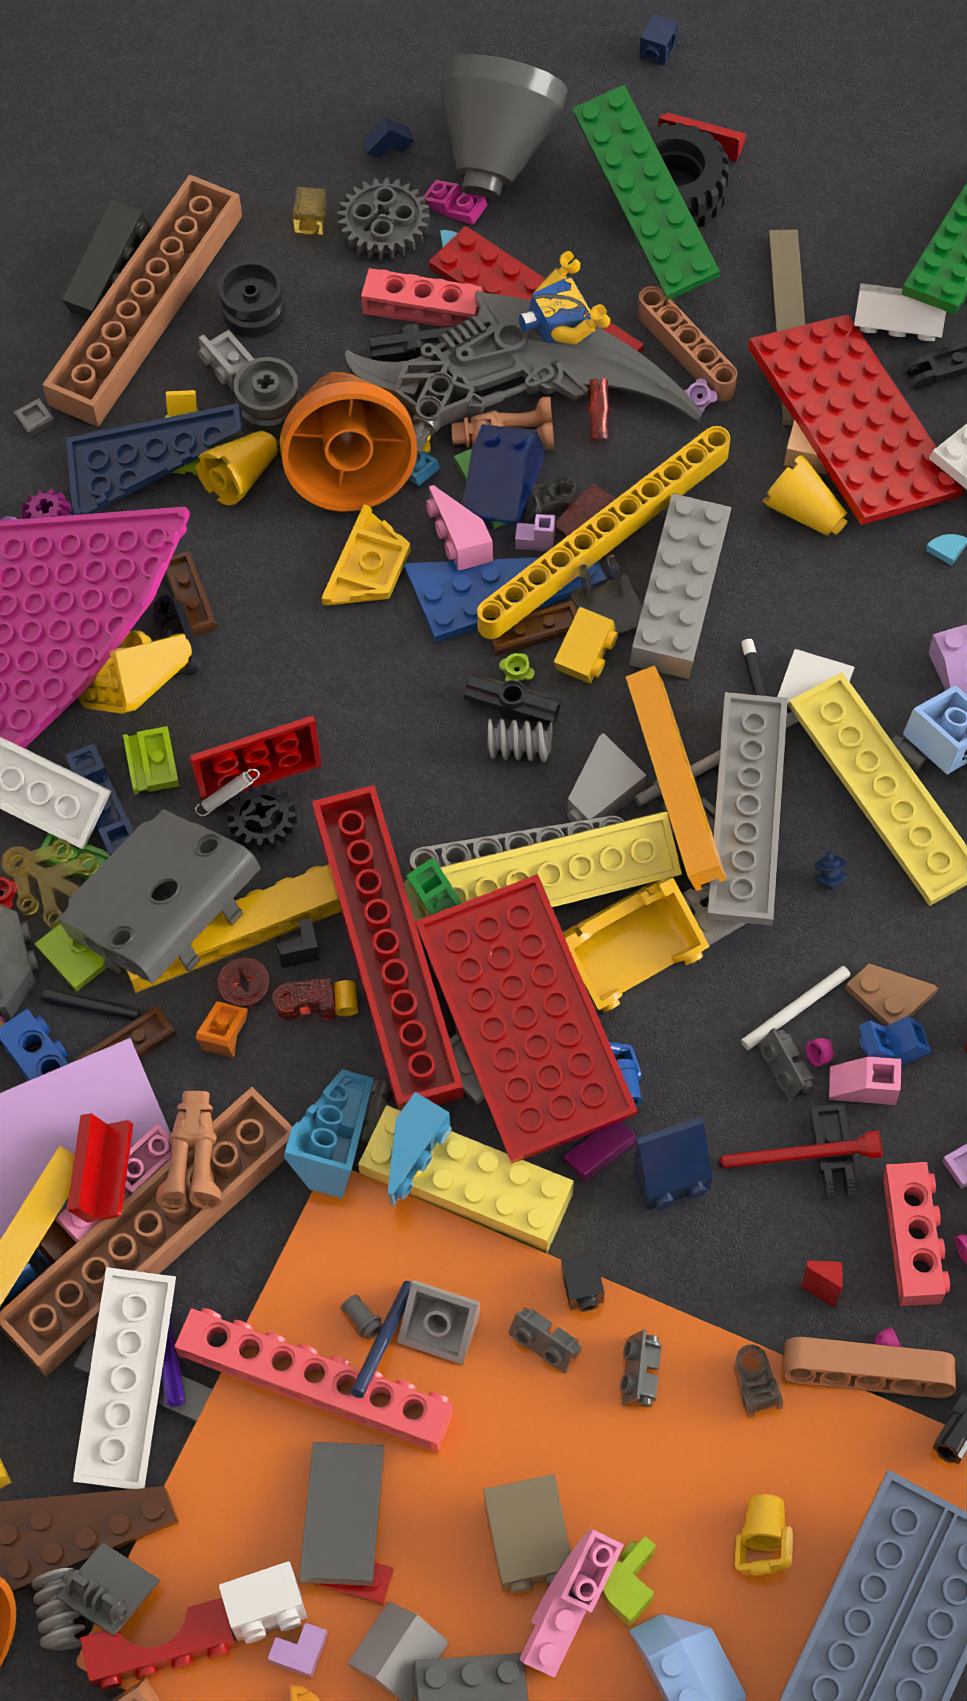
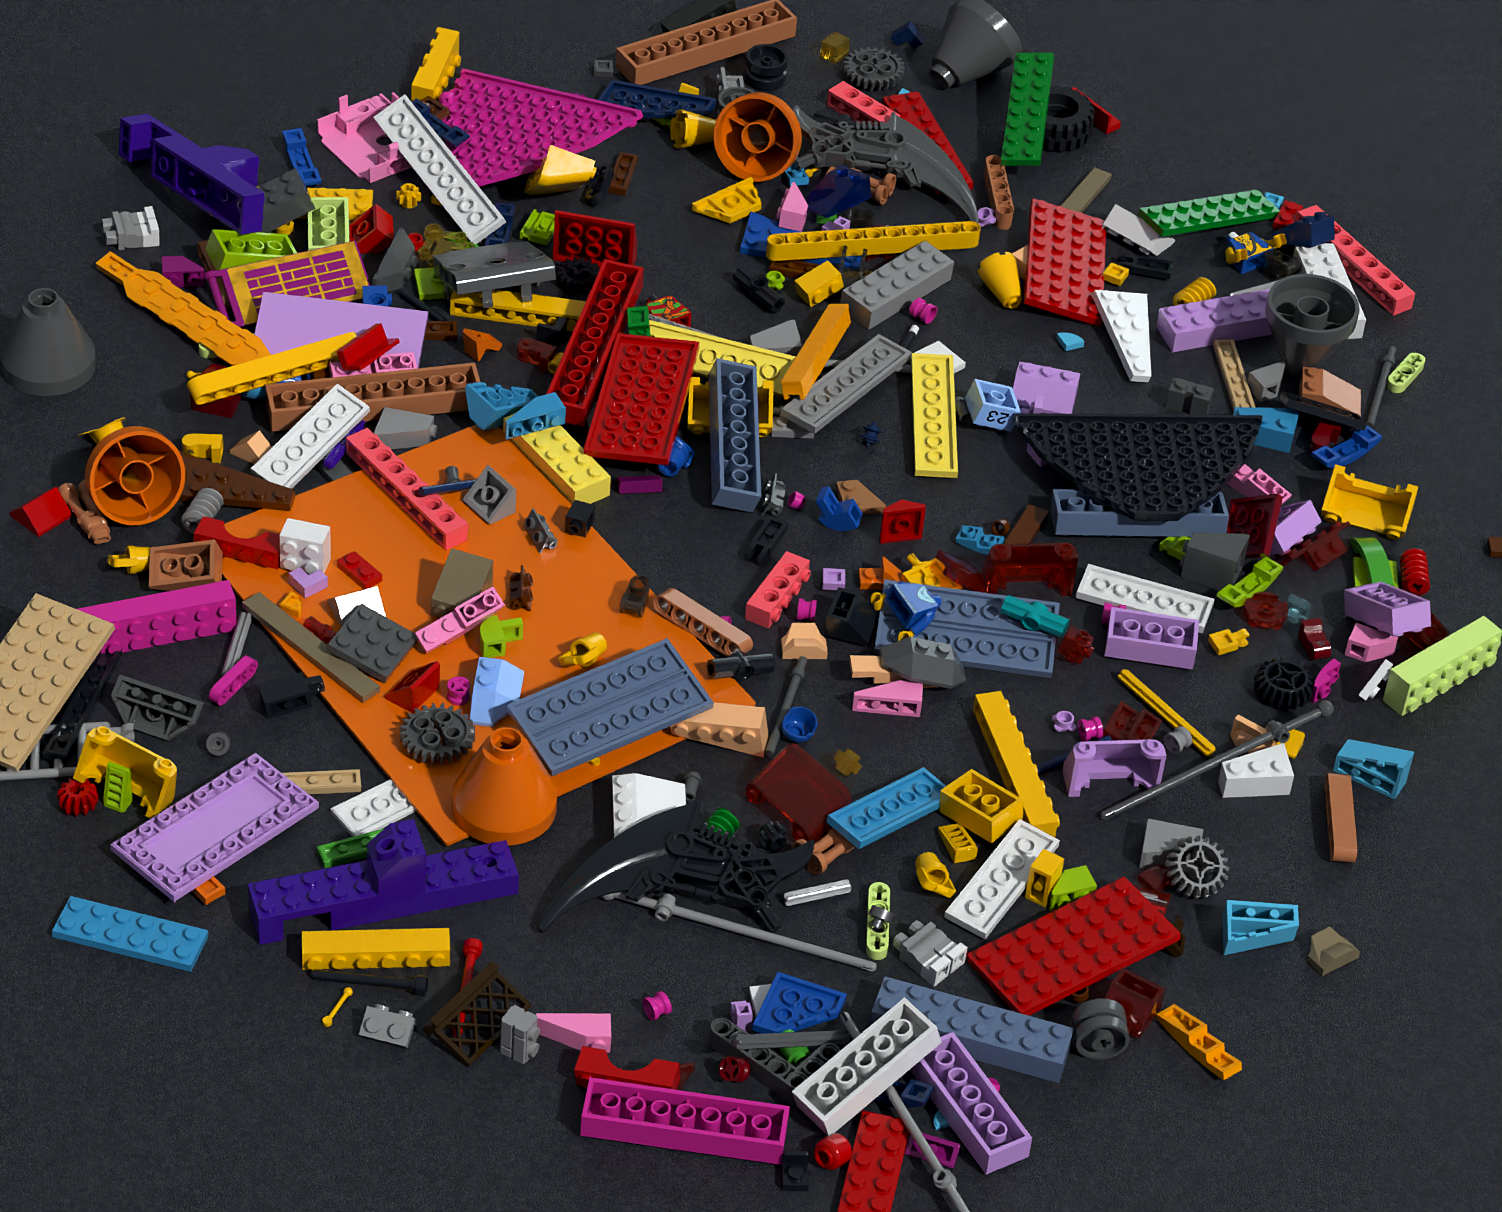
camera: 25 degrees right, 20 degrees down
(46, 1433) = (251, 447): none -> light nougat slope
(107, 1588) = (231, 508): dark grey hinge -> none
(191, 1133) = (426, 361): nougat piece -> none
(227, 792) = (569, 253): white piece -> none
(227, 1260) = (405, 428): none -> light grey slope
(253, 971) = (503, 330): clear red gear -> none
(342, 1514) = (374, 540): dark grey tile -> none
(425, 818) = (669, 309): none -> torso
(451, 202) = (921, 79): dark pink slope -> none
(519, 740) = (747, 307): light grey piece -> none
(560, 309) = (932, 136): torso -> none
(589, 1455) = (521, 589): none -> reddish brown hinge
(599, 409) = (920, 195): clear red pin -> none
(640, 1353) = (584, 559): dark grey hinge -> none
(658, 39) = (1107, 60): dark blue brick -> none
(672, 1164) = (669, 491): dark blue slope -> none
(683, 1002) = (734, 435): none -> sand blue brick
(740, 609) = (924, 311): none -> dark pink wheel
(796, 1007) = (795, 480): white bar -> none
(823, 1280) = (709, 577): red slope -> none
(866, 1081) = (811, 520): bright pink slope -> none
(867, 1145) = (784, 538): red piece -> none
(923, 398) = (1115, 274): none -> yellow plate

